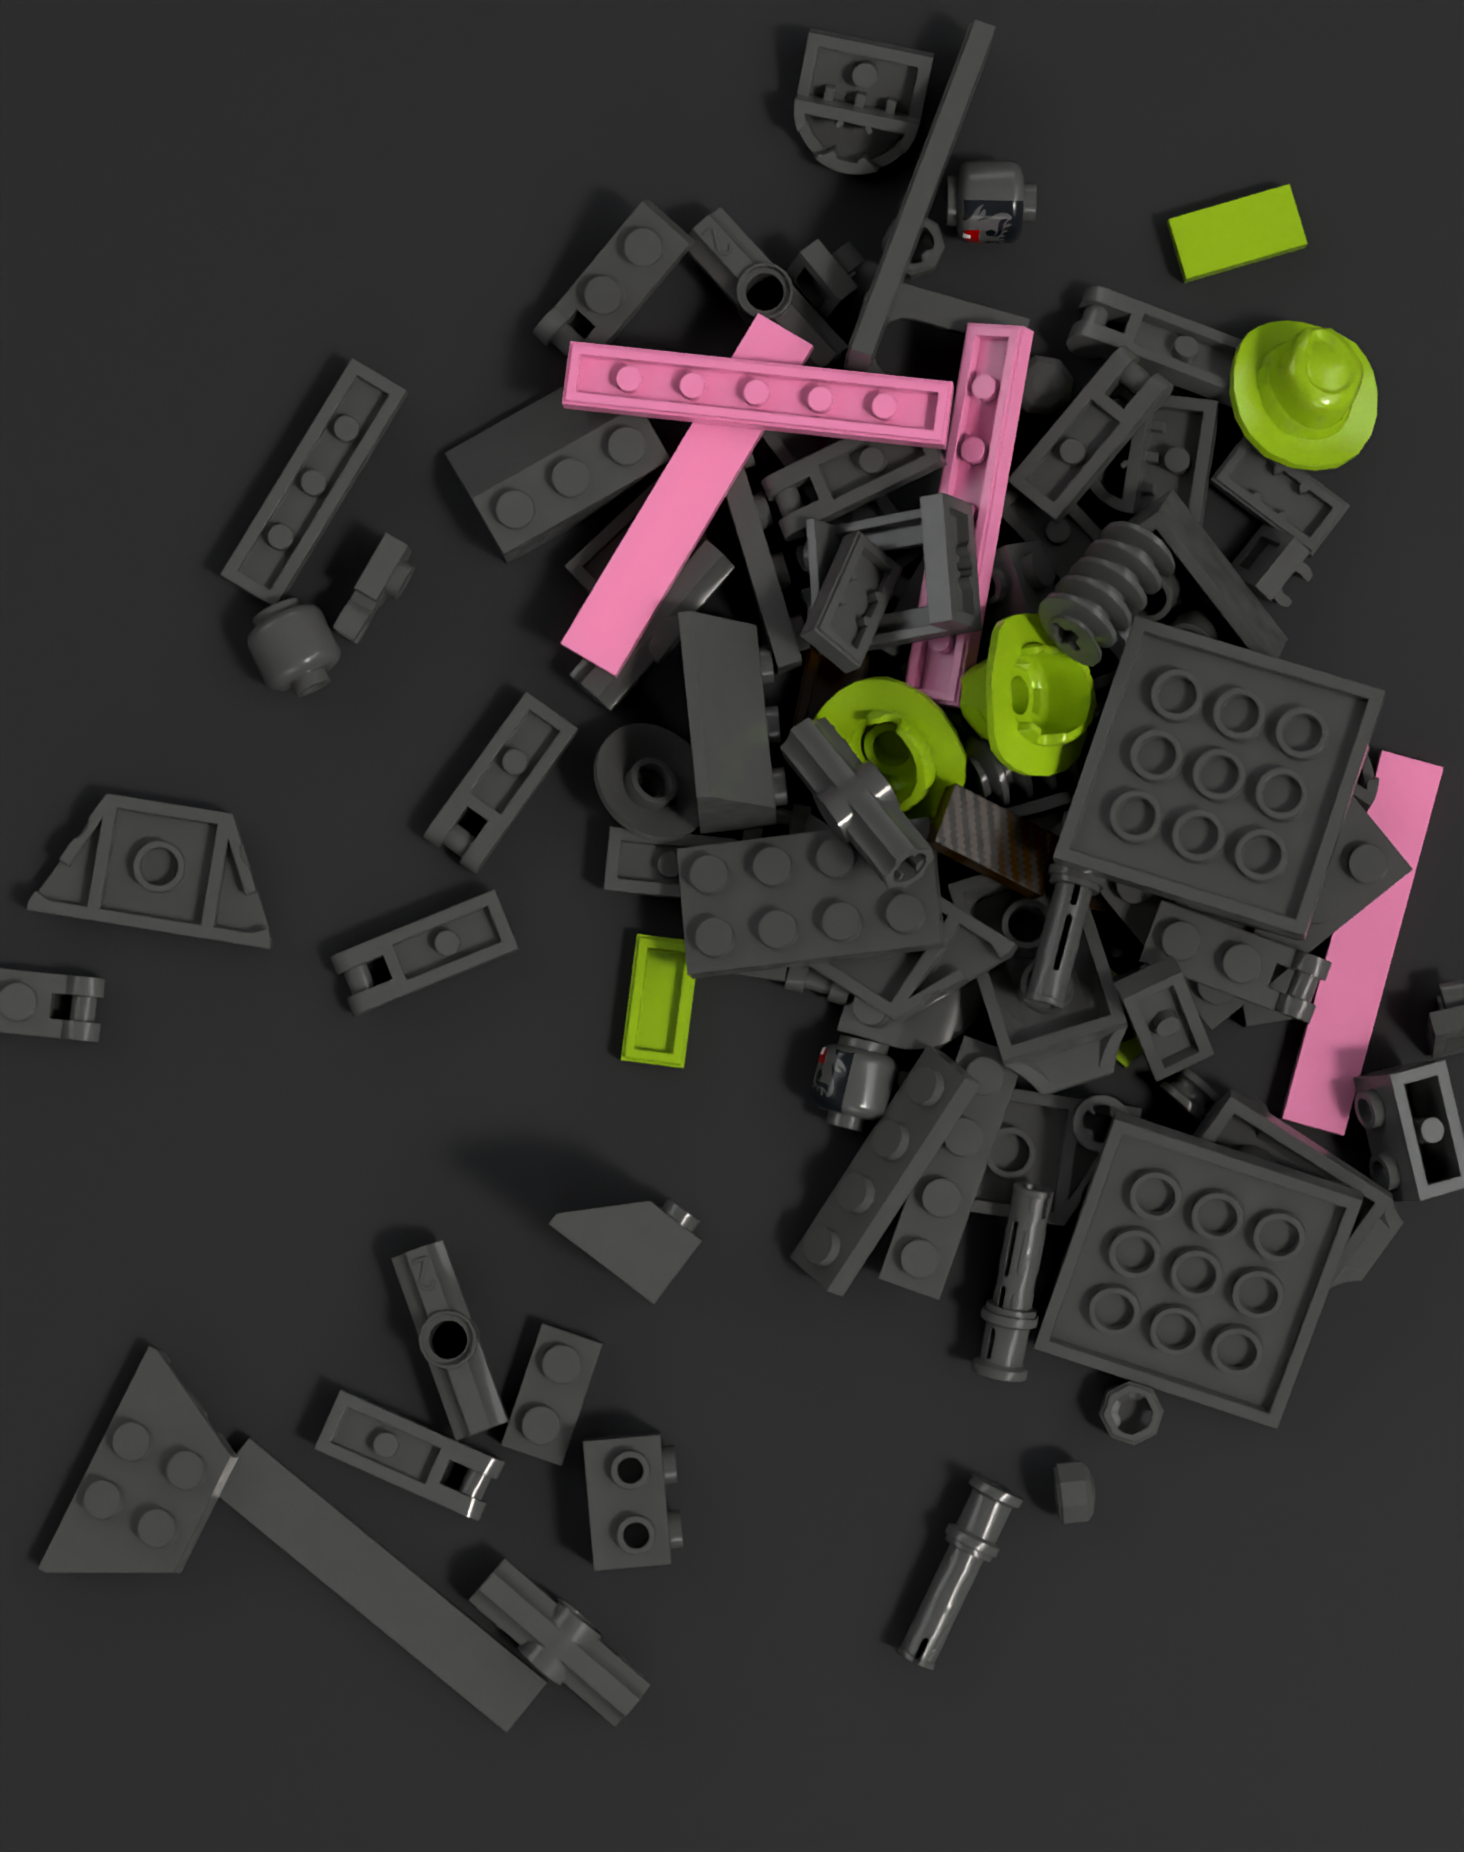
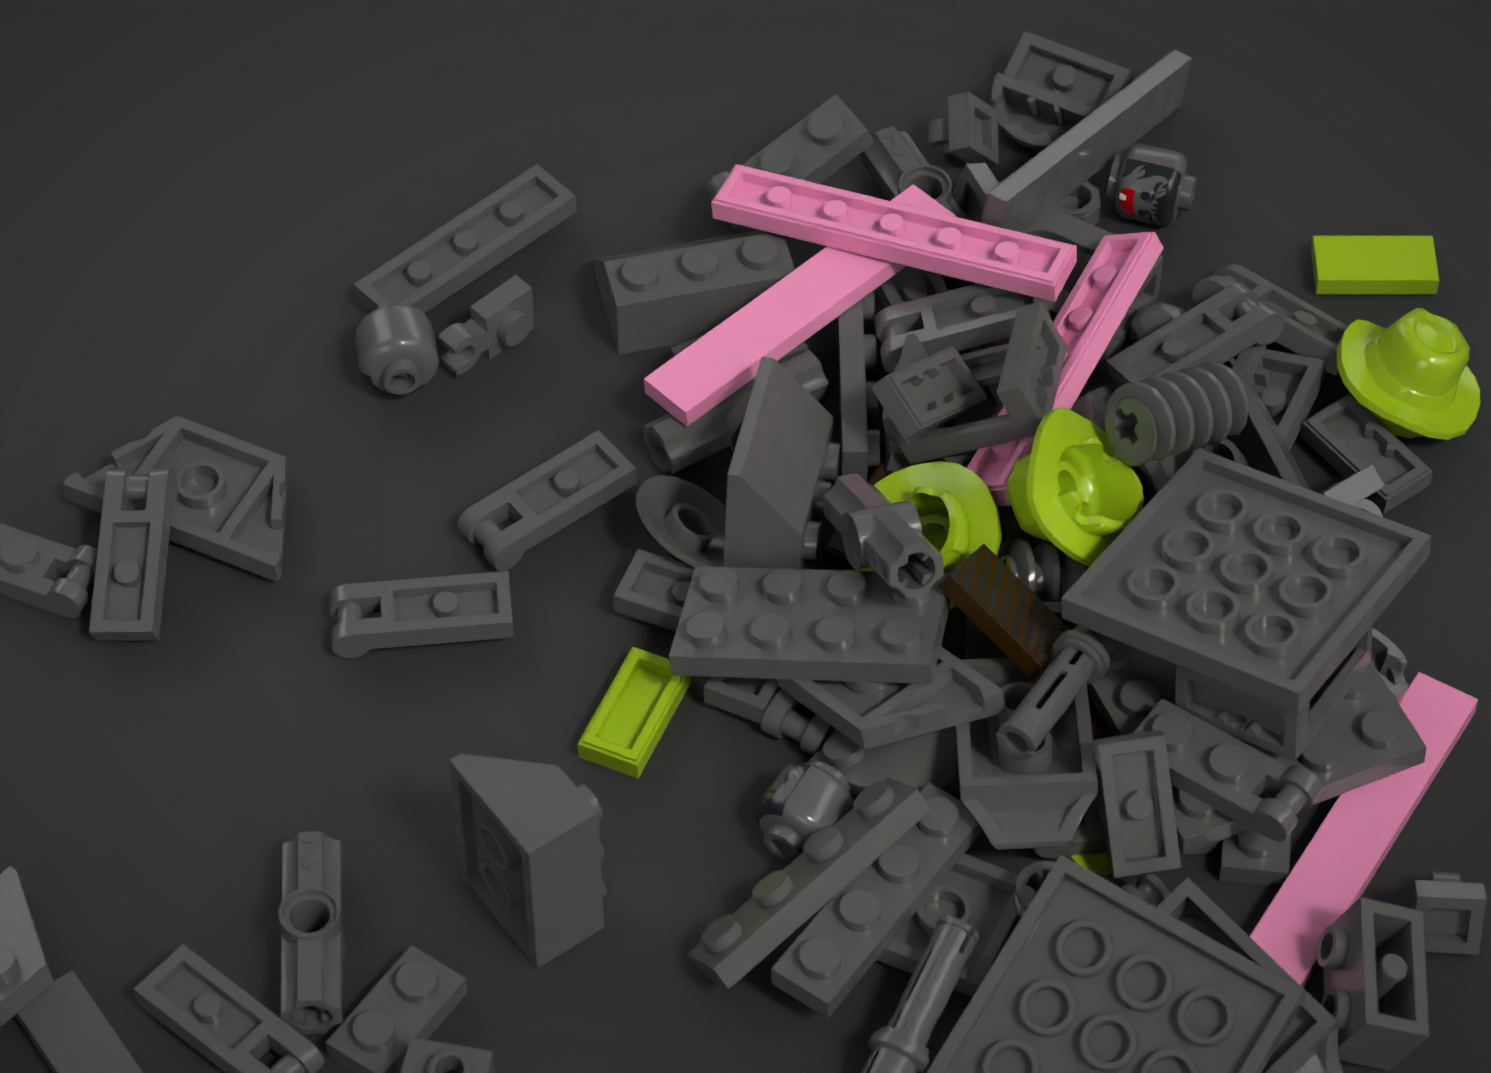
camera: 15 degrees right, 35 degrees down
(130, 978) = (132, 555): none -> dark grey plate
(785, 185) = (968, 131): none -> dark grey tile

